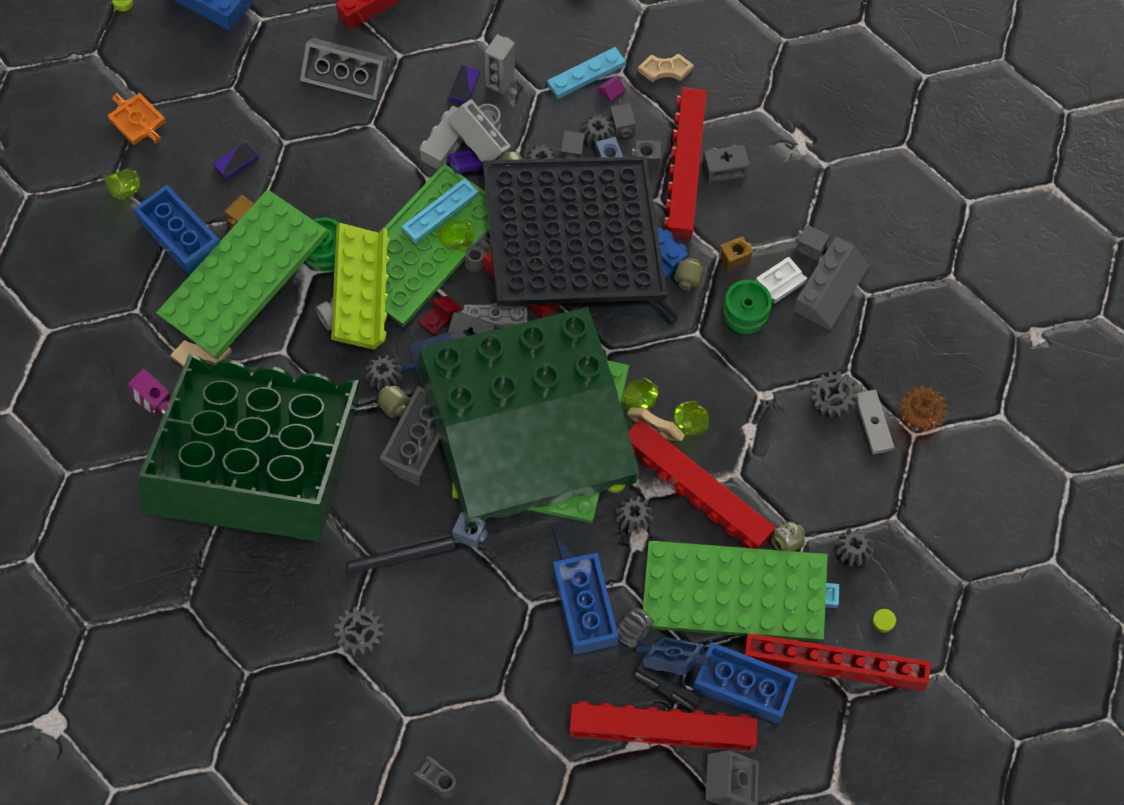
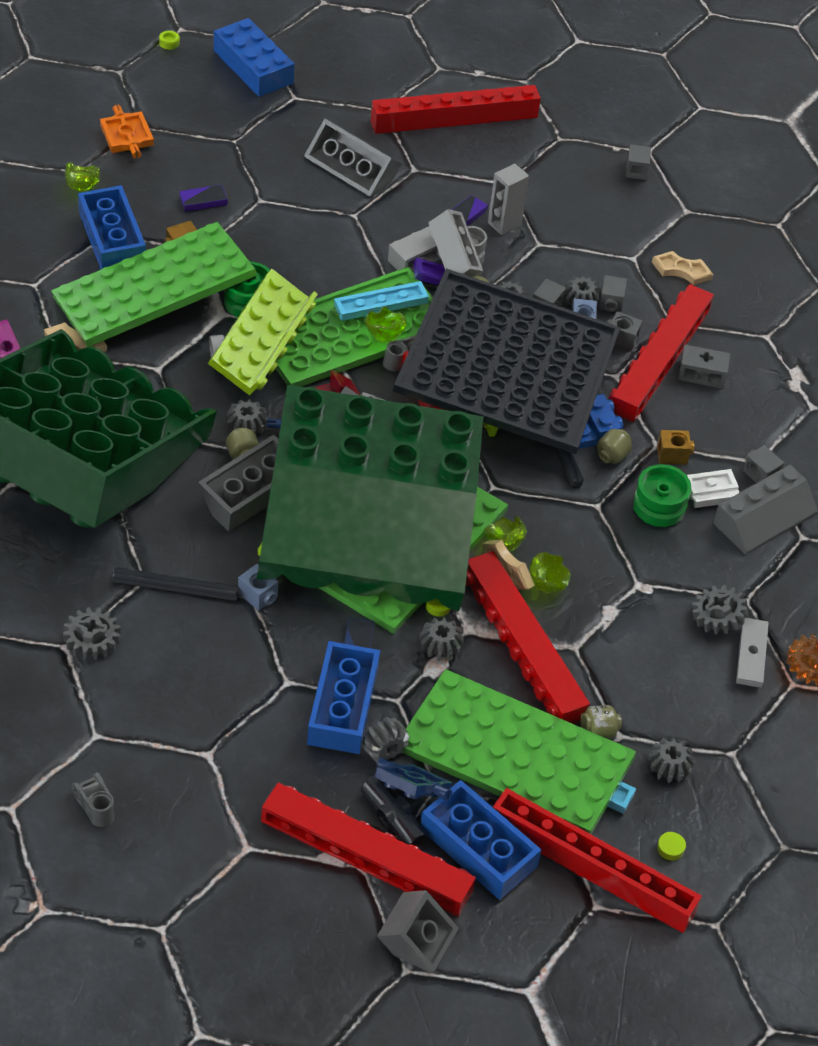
camera: 20 degrees right, 15 degrees down
(586, 73) = (596, 244): medium azure plate -> none
(612, 88) = (617, 266): magenta slope -> none

